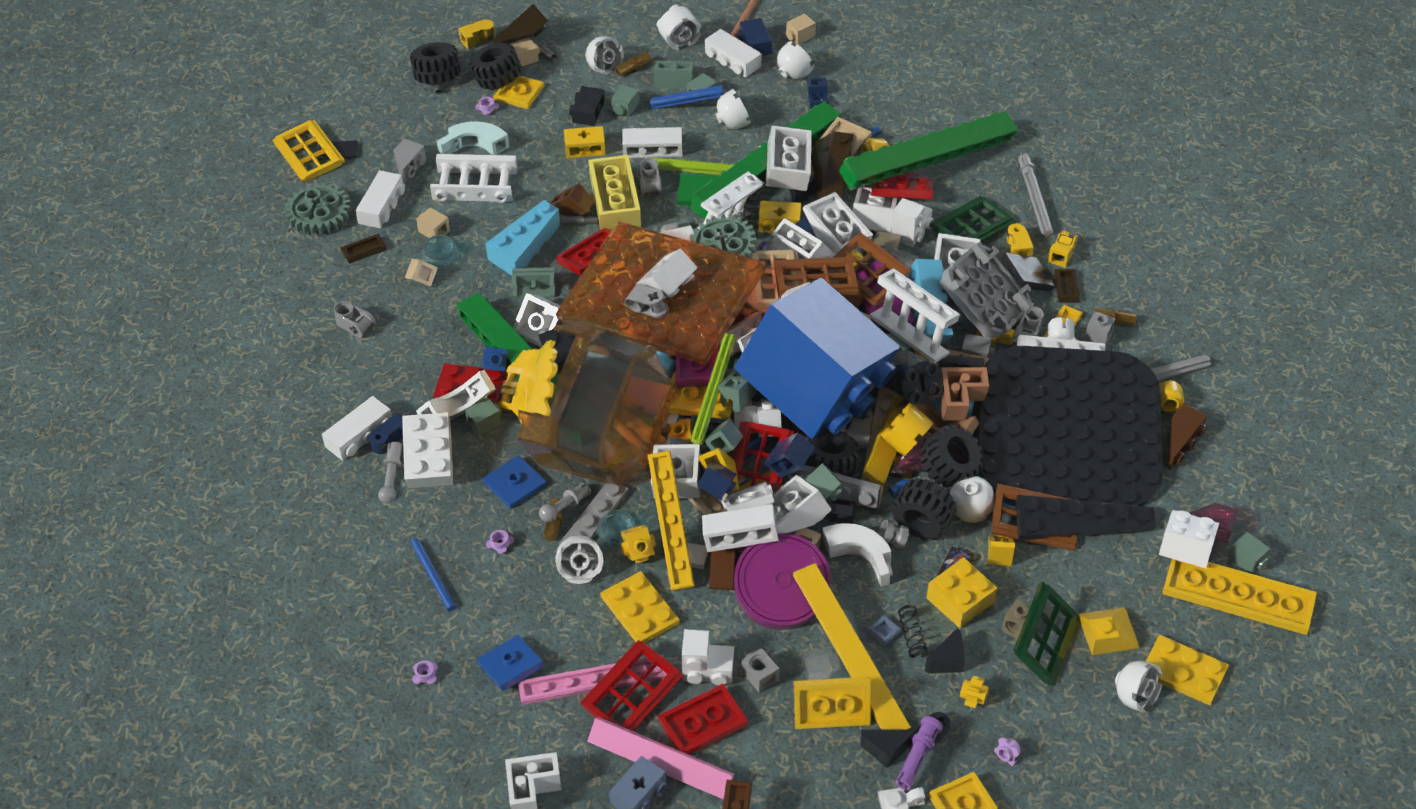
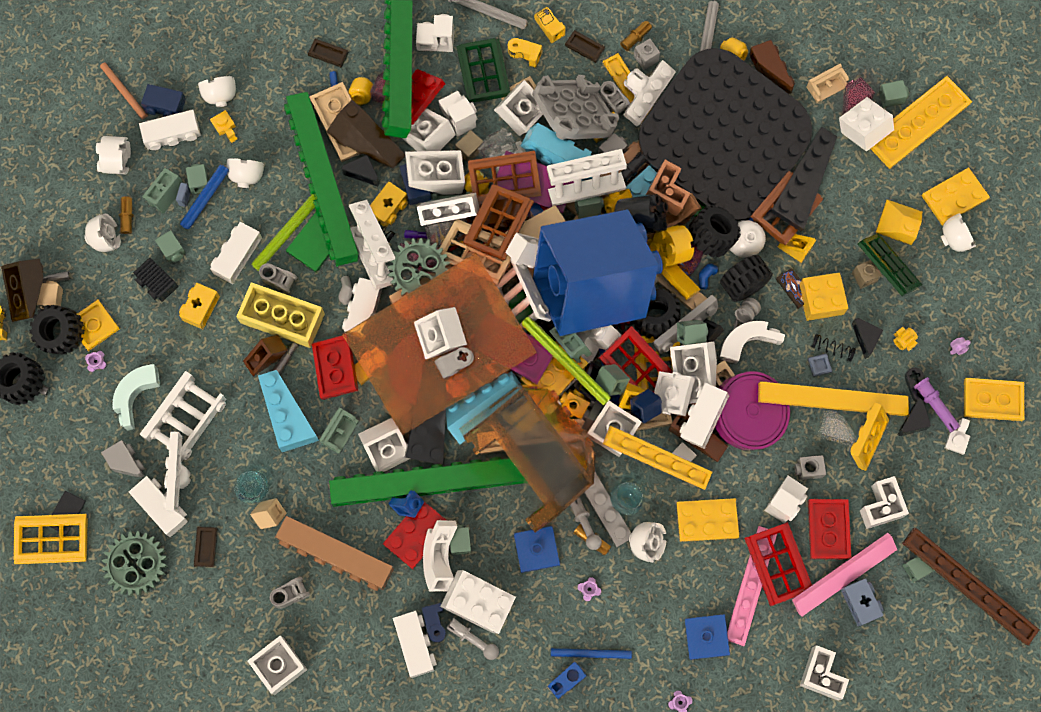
camera: 60 degrees left, 25 degrees up
(278, 338) = (277, 665): none -> white brick
(393, 563) = (567, 680): none -> blue leg
(411, 333) = (335, 553): none -> medium nougat brick
(414, 188) = (177, 475): none -> white plate
(432, 223) = (218, 477): tan brick -> none
(534, 386) = (483, 491): yellow animal -> none
(632, 537) = (655, 491): yellow brick -> none
(678, 85) = (183, 195): none -> sand blue tile
(762, 759) = (889, 504): none -> white brick
(767, 84) = (224, 125): none -> yellow plate
(789, 158) = (346, 163): white brick -> none
(789, 455) = (659, 343): dark blue brick -> none
(801, 29) = (177, 60): tan brick -> none
(817, 91) = (260, 92): dark blue slope -> none
(894, 117) = (328, 53): none -> dark brown tile
(976, 172) = (437, 35): none -> white brick
(1028, 271) = (560, 64): tile -> none
(1207, 489) = (828, 83): none -> tan hinge

